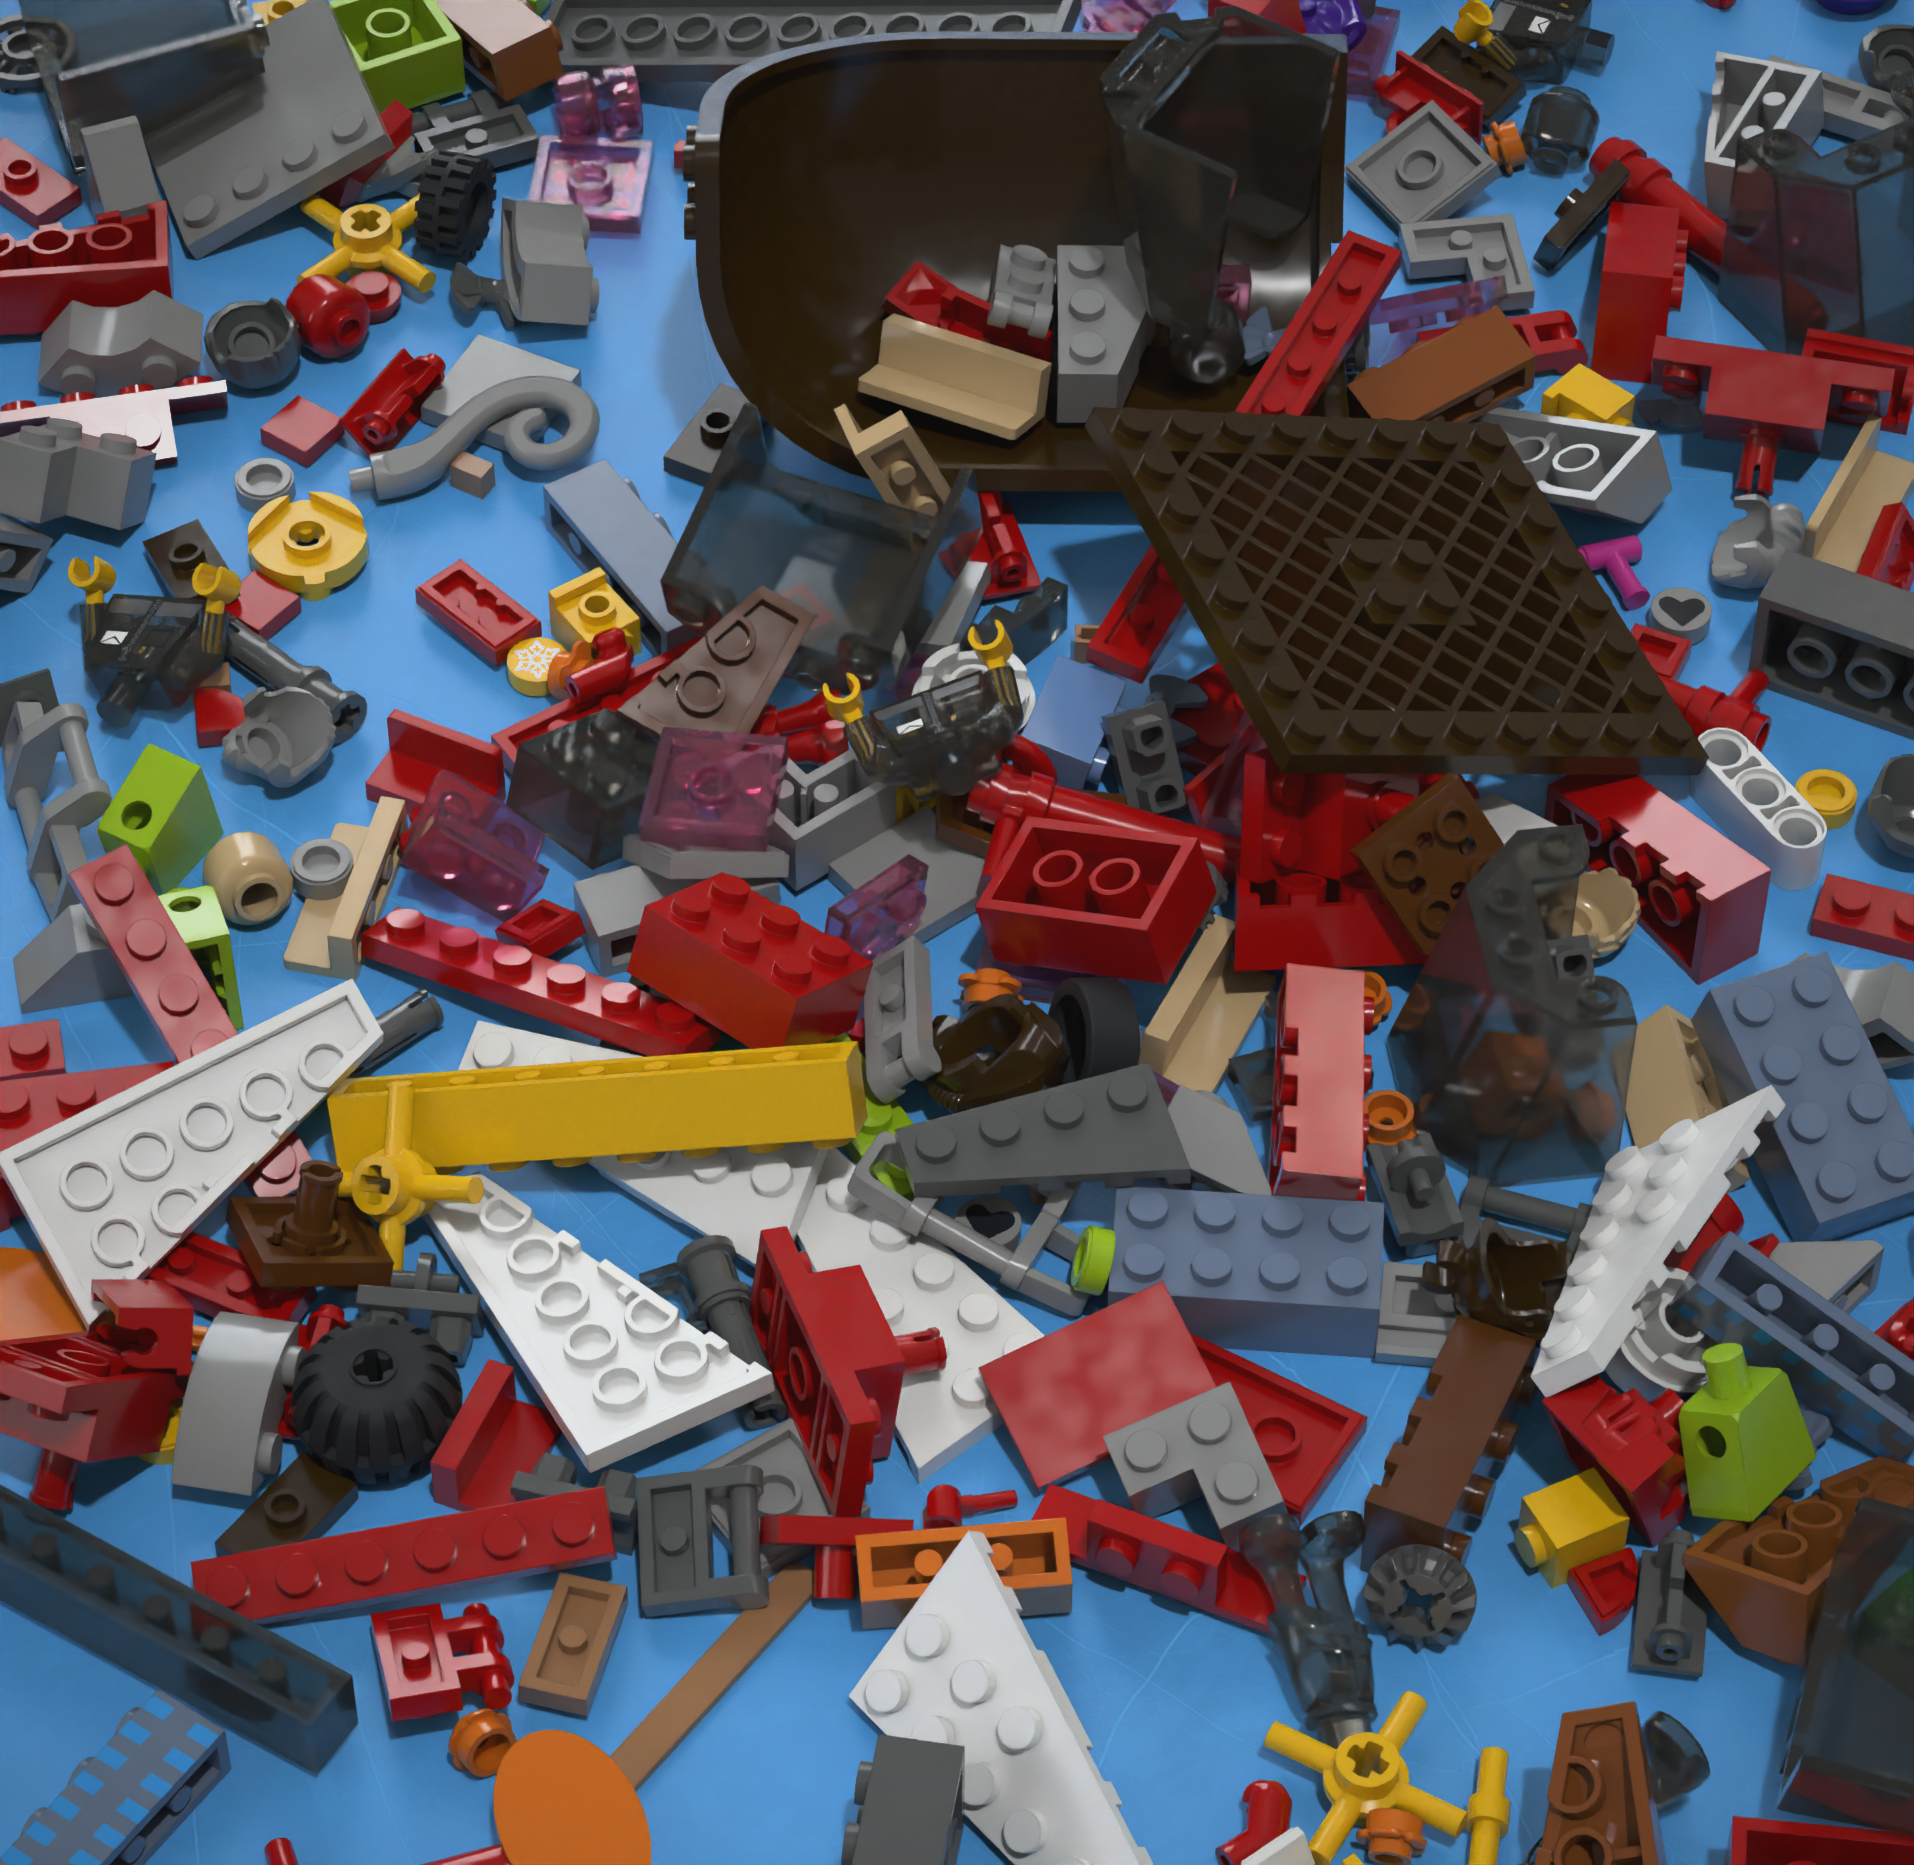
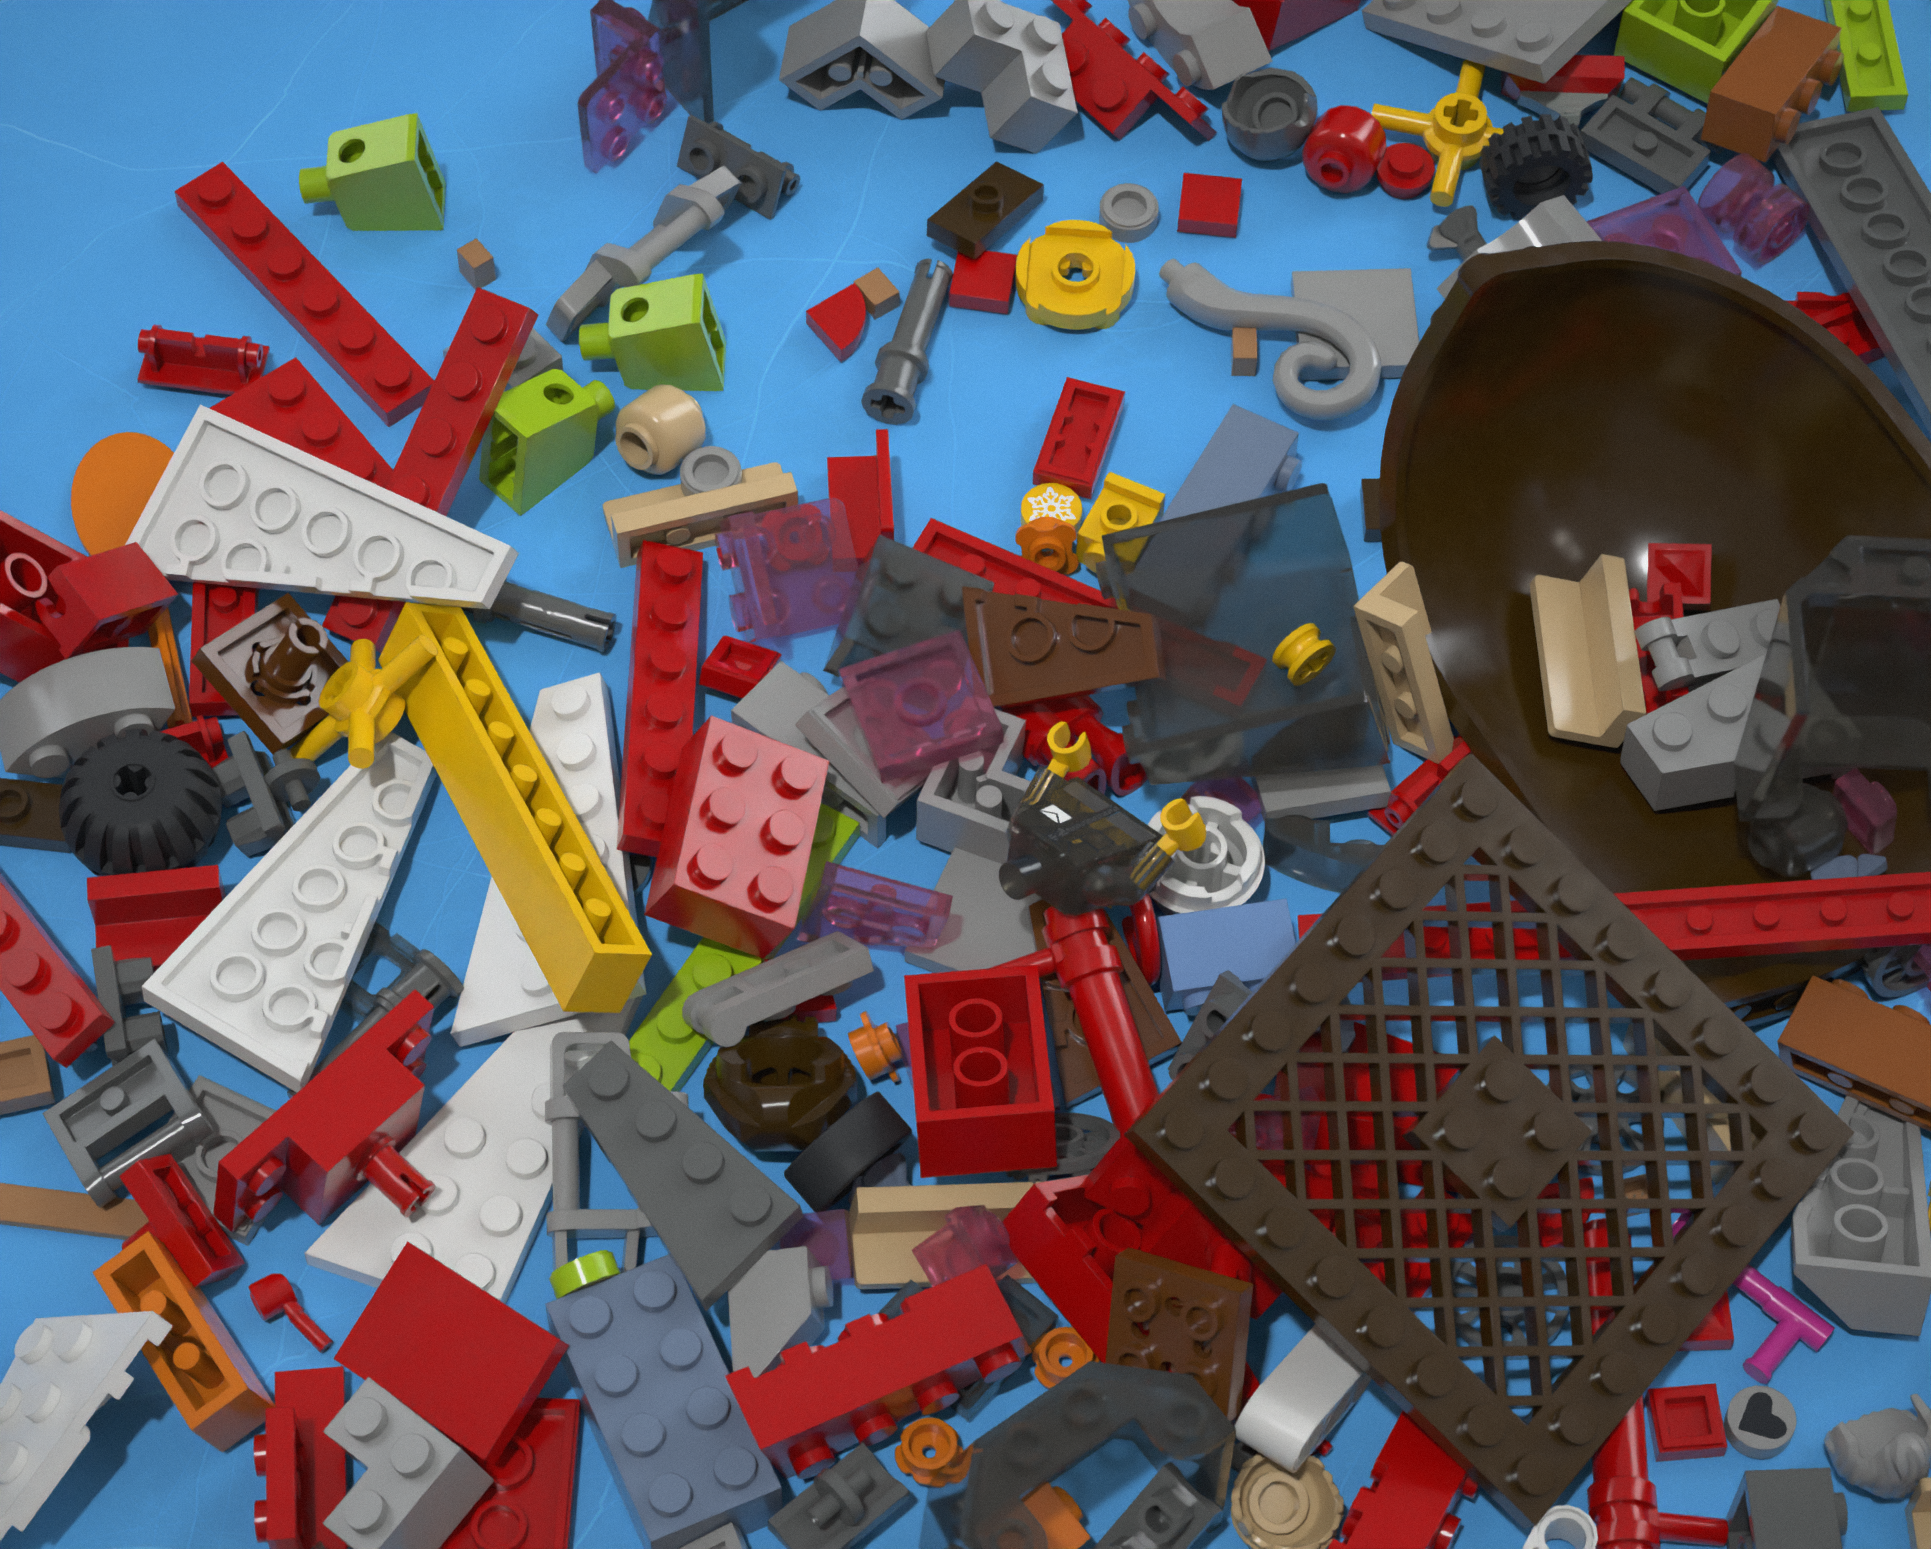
camera: 60 degrees right, 10 degrees up
(151, 647) = (862, 224): clear smoke torso -> none
(281, 736) = (822, 369): light grey hair -> none
(392, 401) = (1275, 248): red hinge -> none
(609, 667) = (1056, 564): red arm -> none
(832, 544) = (1303, 654): none -> yellow bush
(992, 1218) = (602, 1184): tile -> none
(1242, 999) = (966, 1242): none -> clear pink bracket

